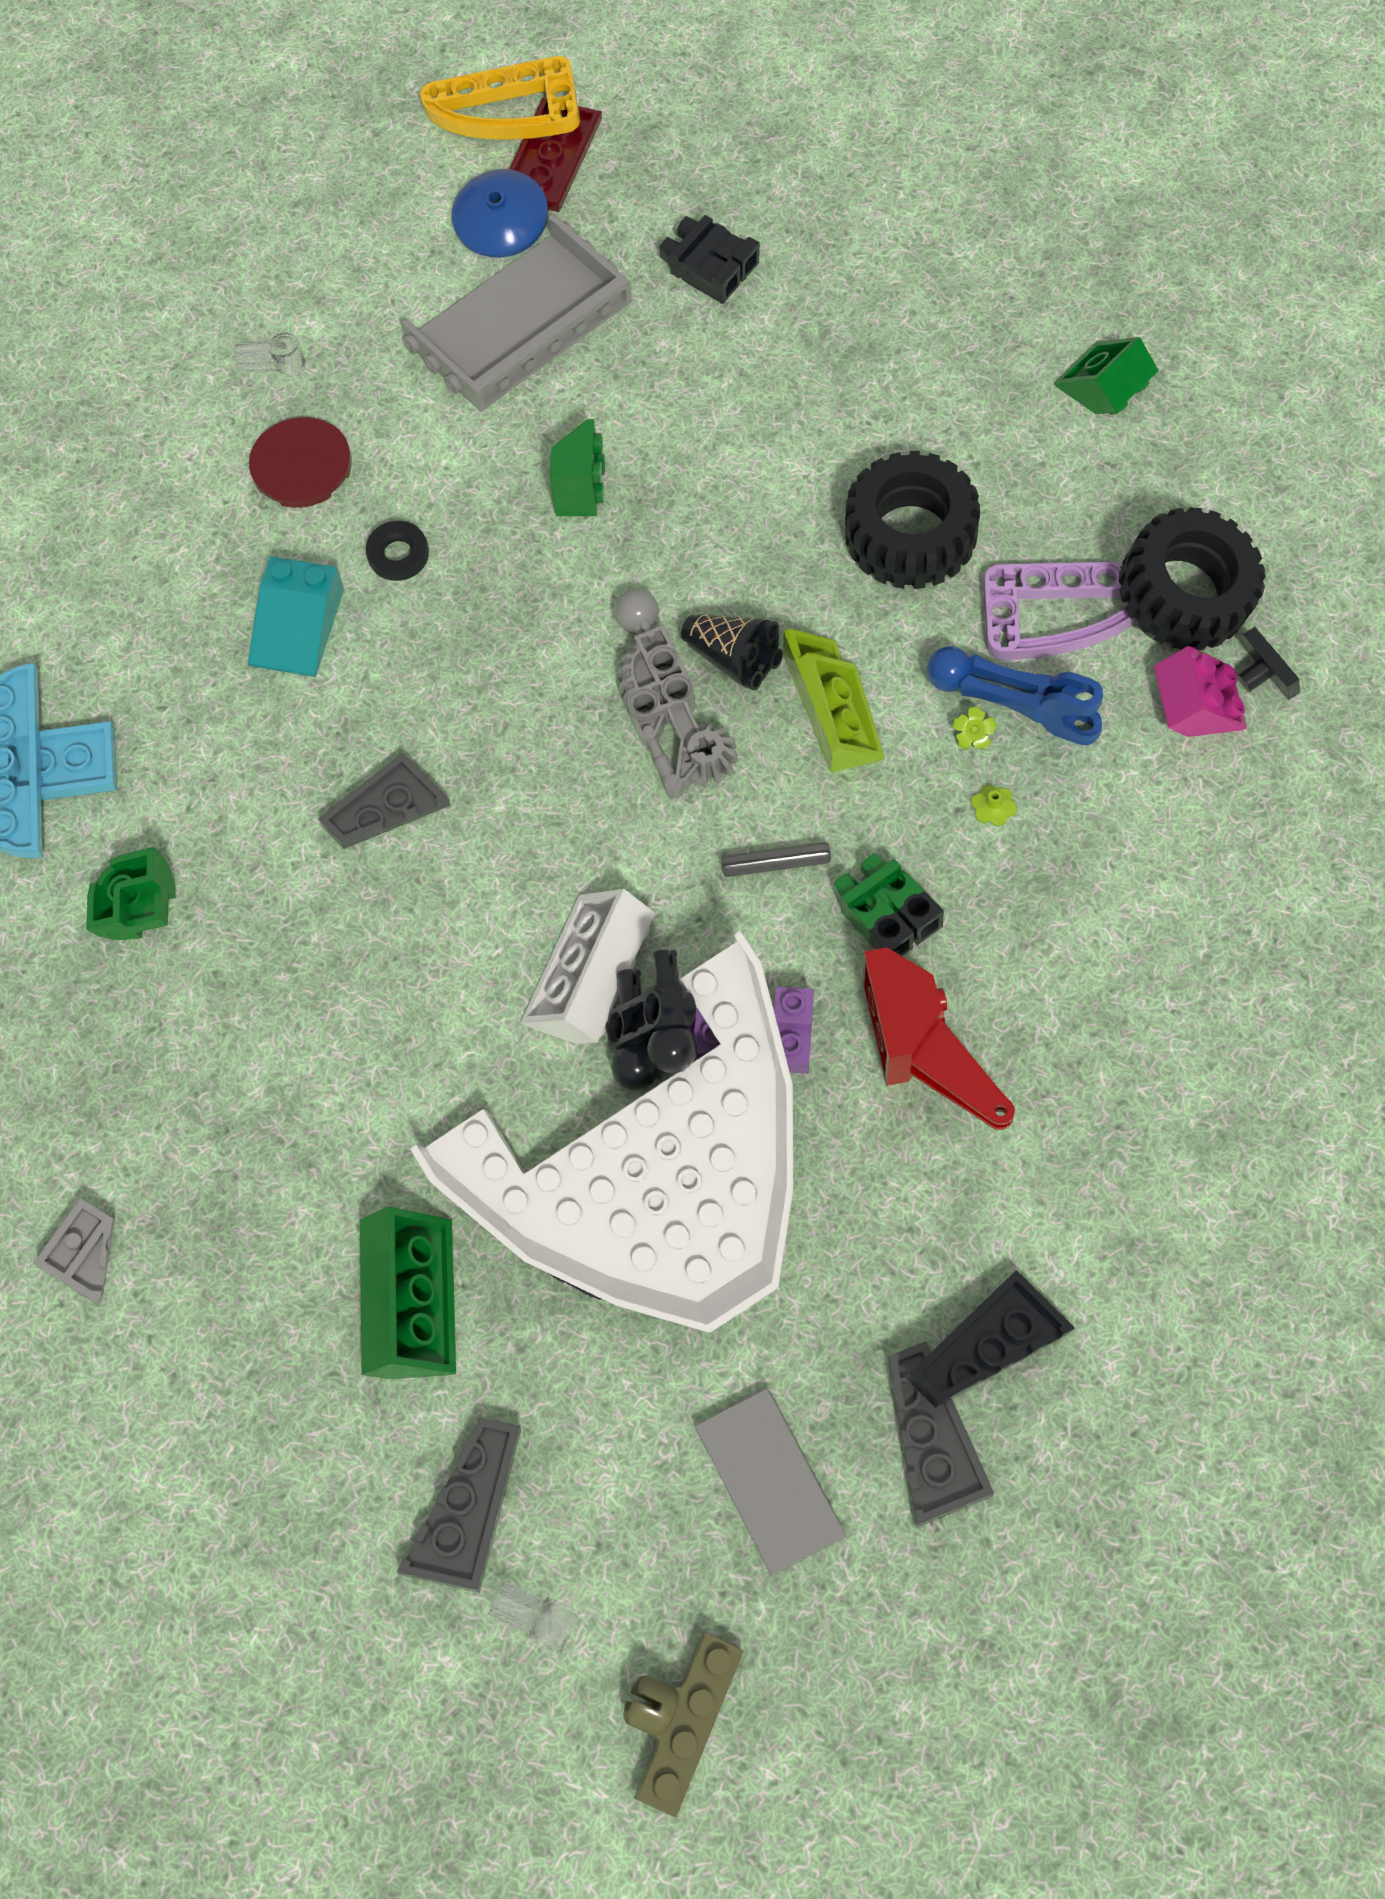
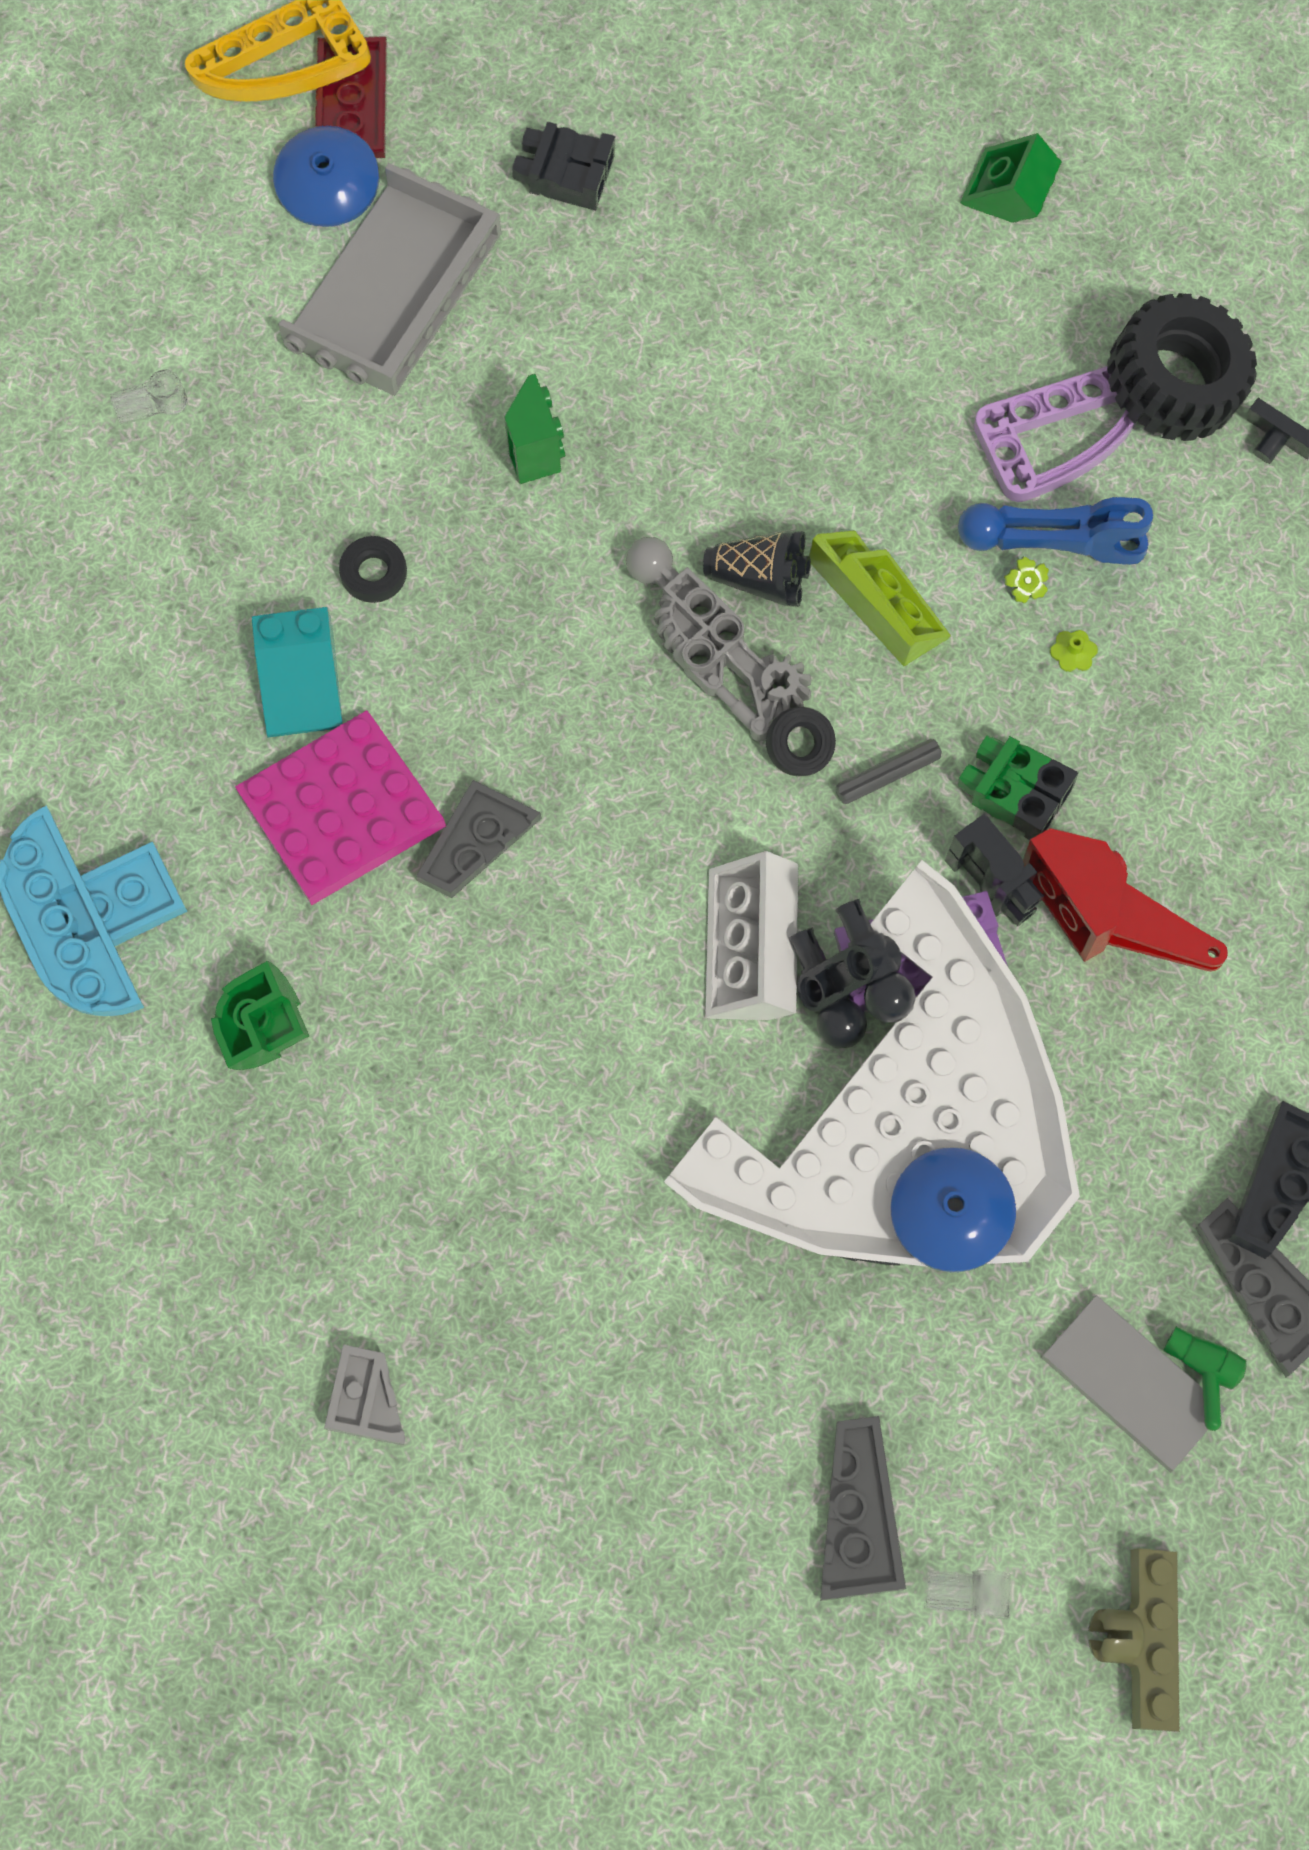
camera: 25 degrees left, 5 degrees up
(280, 741) = (340, 807): none -> dark pink plate
(300, 461) = (228, 504): dark red tile -> none
(406, 1295) = (712, 1327): green slope -> none
(662, 1287) = (945, 1237): none -> blue dish
(704, 784) = (823, 741): none -> black tyre
(836, 990) = (996, 869): none -> black hips
(850, 1488) = (1214, 1363): none -> green piece
(918, 483) = (893, 345): black tyre -> none
(1199, 694) = (1228, 480): dark pink slope -> none

